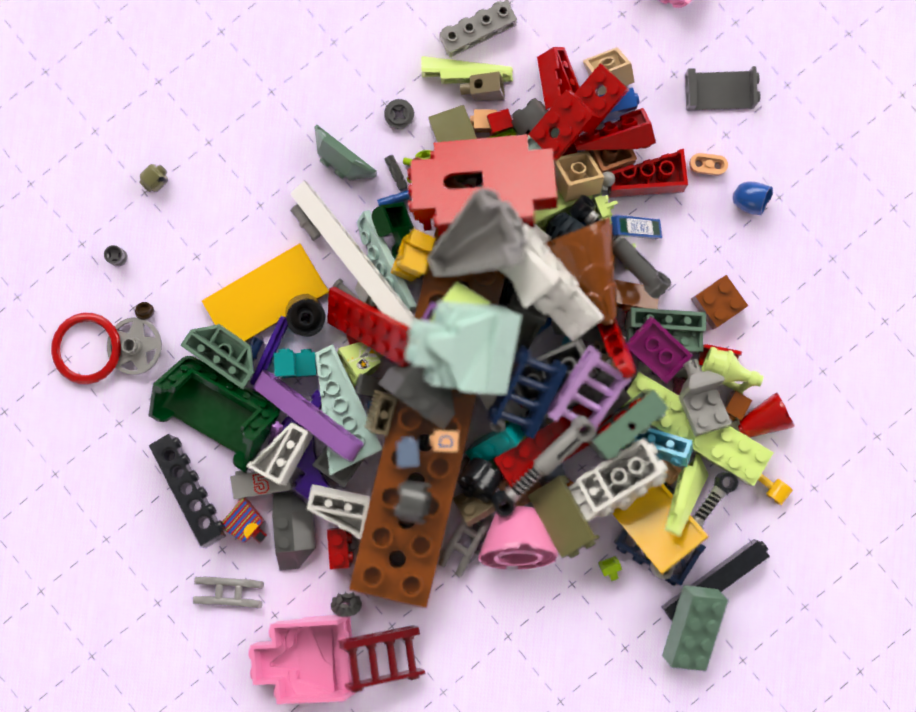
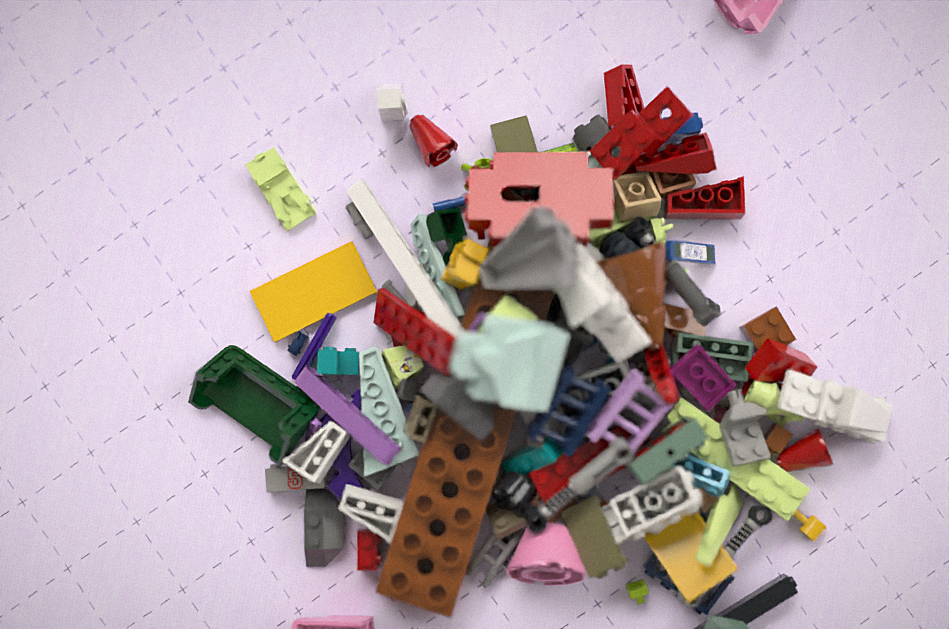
camera: 10 degrees right, 0 degrees up
(56, 345) = (160, 335): red wedge -> none
(112, 252) = (164, 239): dark grey wheel -> none
(136, 346) = (179, 331): light grey wheel -> none
(144, 310) = (192, 296): dark brown plate -> none
(153, 177) = (211, 164): olive head -> none
(161, 450) = (198, 437): black brick -> none
(220, 600) = (243, 589): light grey piece -> none
(222, 352) = (266, 344): sand green wedge -> none
(224, 197) = (280, 189): none -> yellowish green piece
(245, 522) = (275, 516): torso -> none
(299, 324) = (346, 323): black brick -> none
(328, 102) = (391, 102): none -> white wedge
(341, 158) = (398, 158): sand green wedge -> none
(343, 609) = (369, 612): dark grey gear -> none
(371, 137) = (432, 141): none -> red cone
(396, 172) = (453, 177): dark grey axle -> none
(398, 105) = (461, 109): dark grey gear -> none
(408, 452) = (445, 462): sand blue piece -> none
(413, 501) = (446, 511): dark grey brick -> none
(444, 441) = (482, 452): light nougat brick -> none
(459, 71) = (530, 81): yellowish green wedge -> none
(478, 28) = (547, 38): light grey brick -> none
(479, 120) = (546, 132): light nougat brick -> none
(484, 87) = (556, 99): dark tan torso -> none
(499, 121) = (561, 135): red panel -> none
(609, 180) = (666, 203): light grey bar -> none
(615, 62) = (682, 86): tan slope -> none
(708, 162) = (766, 193): light nougat plate -> none
(721, 90) = (786, 119): dark grey panel -> none
(734, 330) = (775, 358): none -> red wedge
(752, 197) = (809, 230): blue piece -> none
(793, 369) = (836, 406): none -> white wedge

